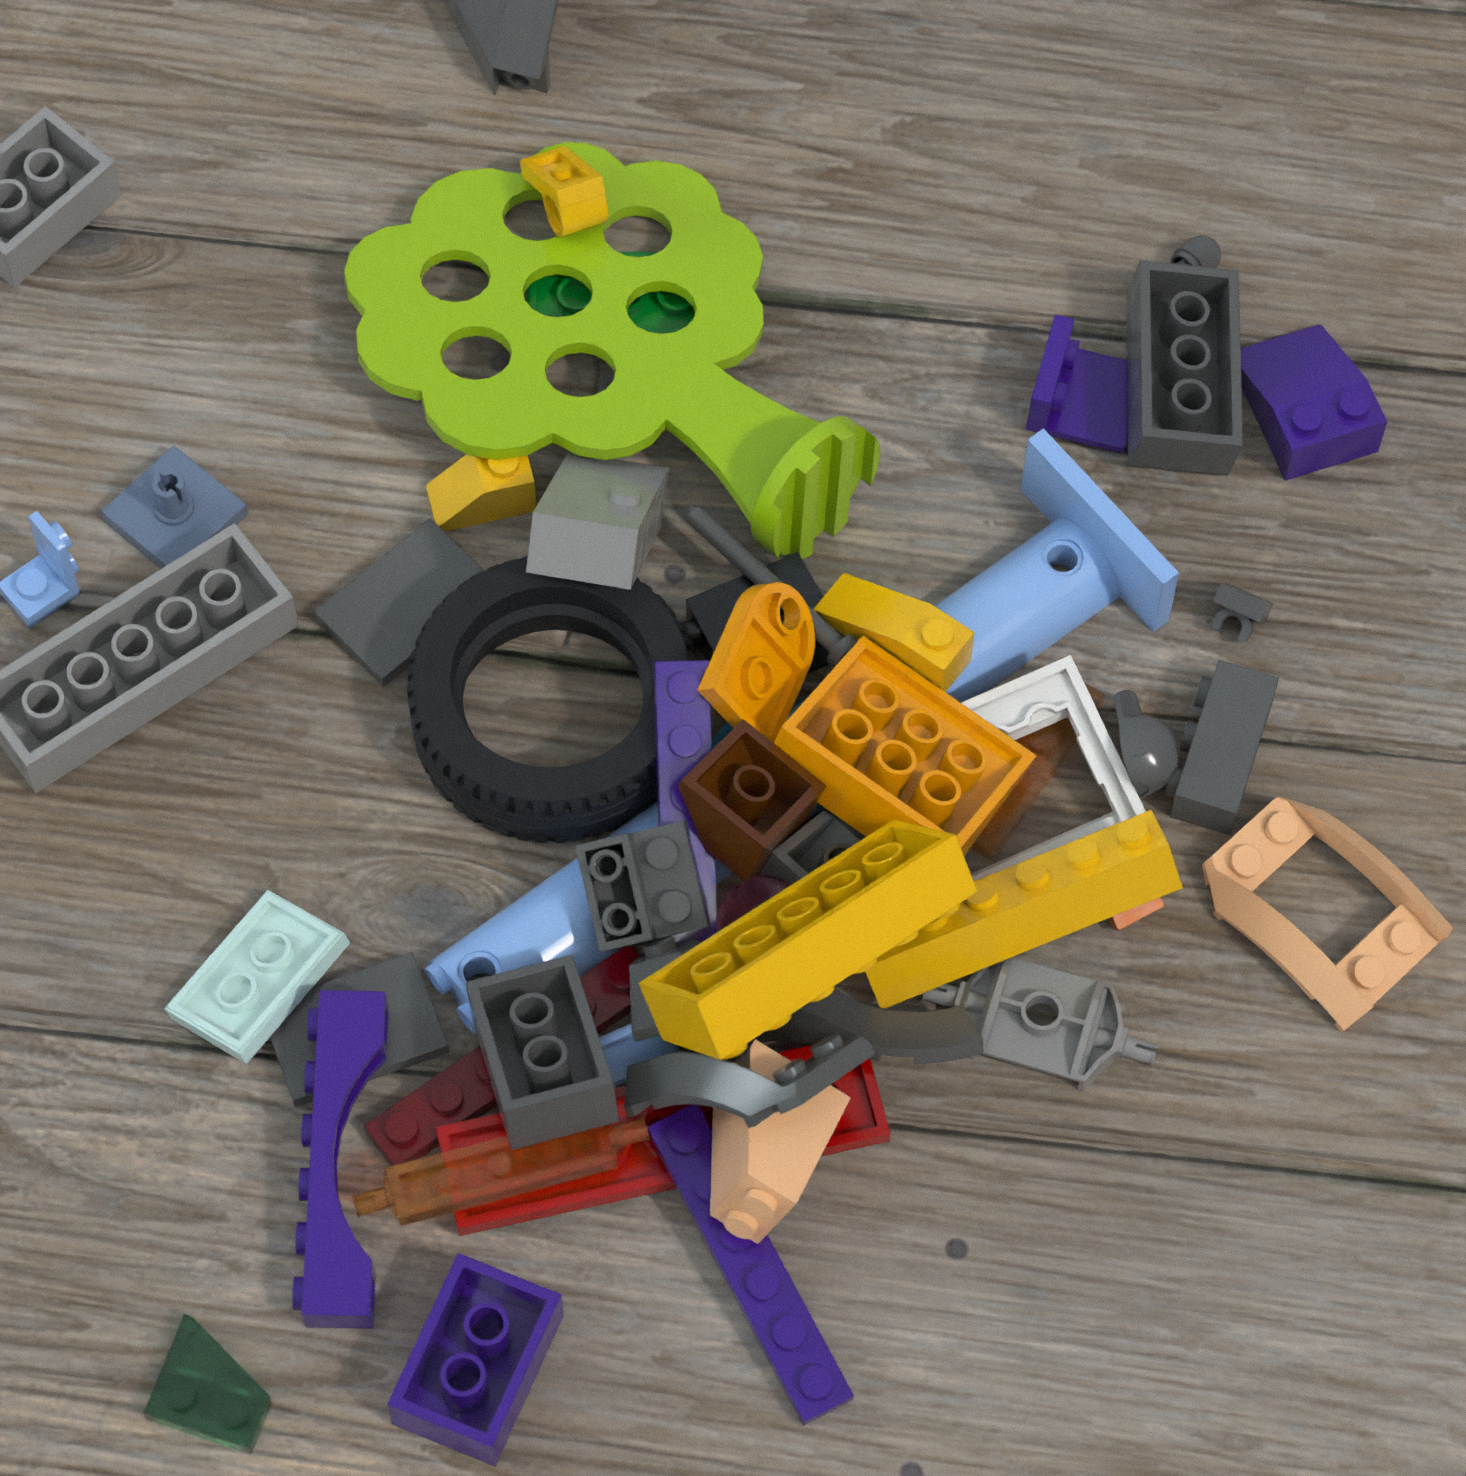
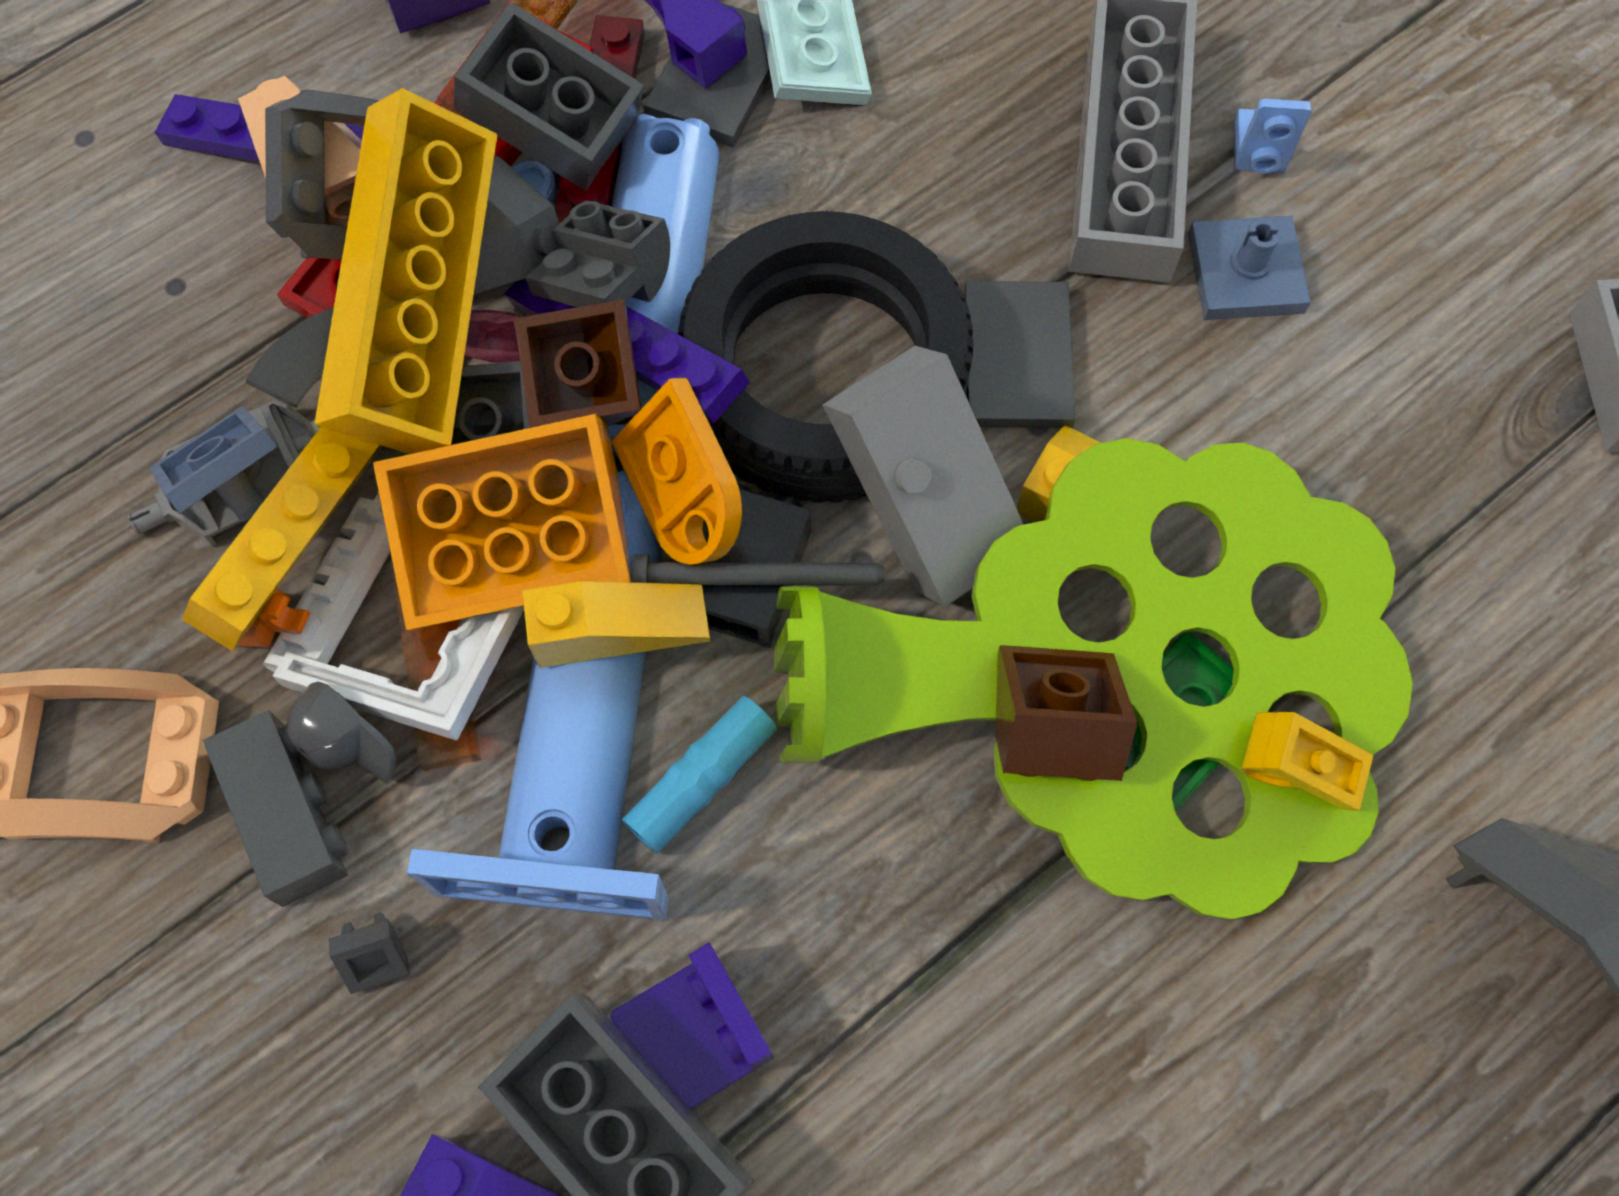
camera: 135 degrees right, 5 degrees up
(682, 324) = (1062, 714): none -> reddish brown slope
(930, 526) = (699, 774): none -> medium azure axle
(1062, 984) = (216, 463): none -> sand blue tile

